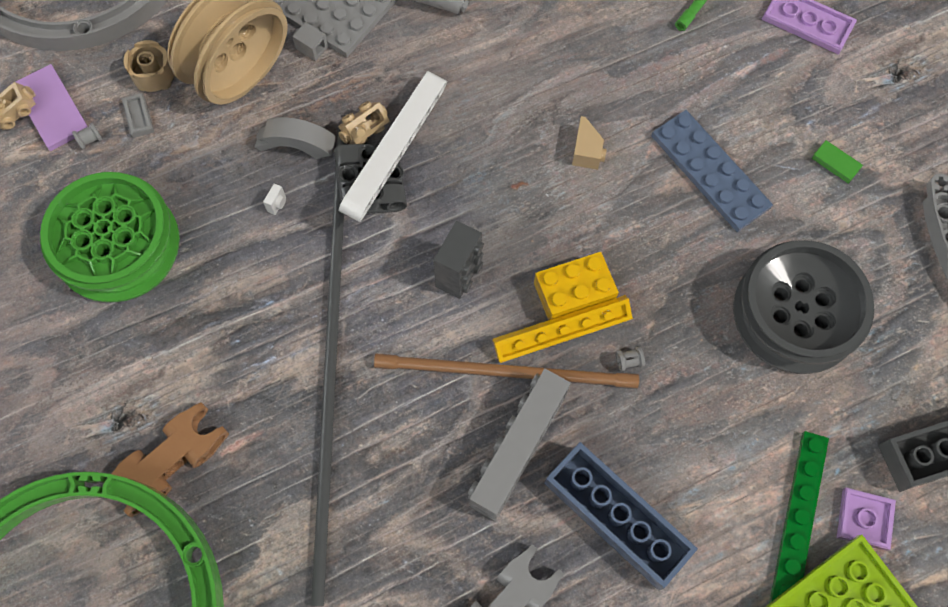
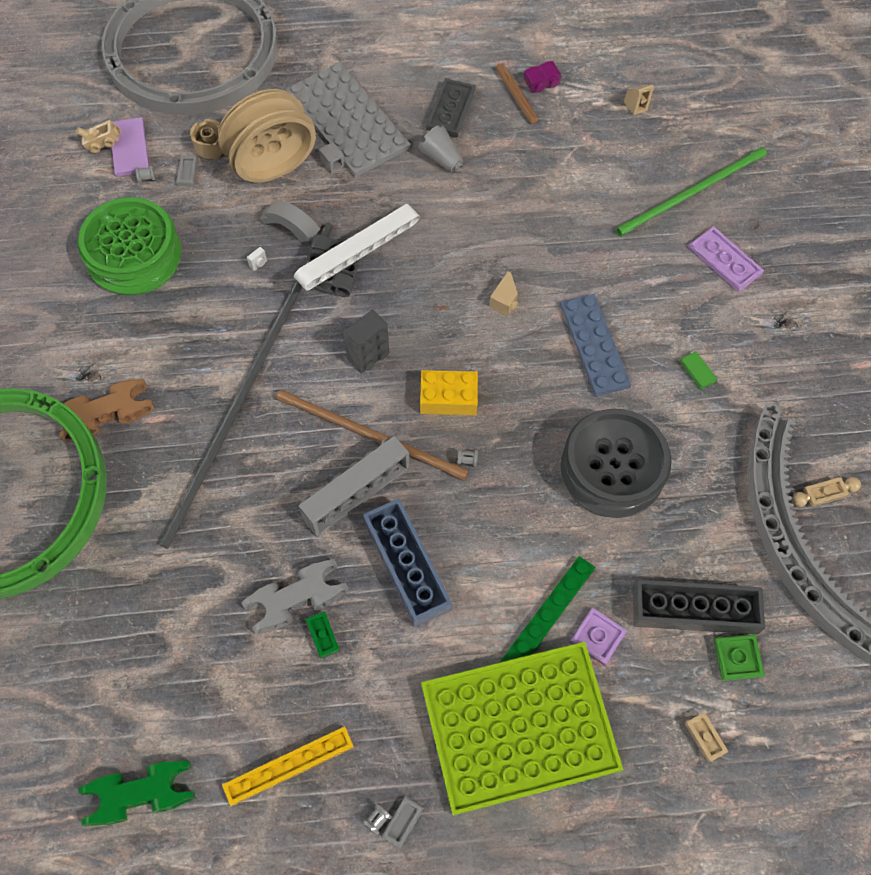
camera: 20 degrees right, 5 degrees down
(357, 128) = (339, 227): tan brick -> none
(562, 328) = (426, 418): yellow plate -> none

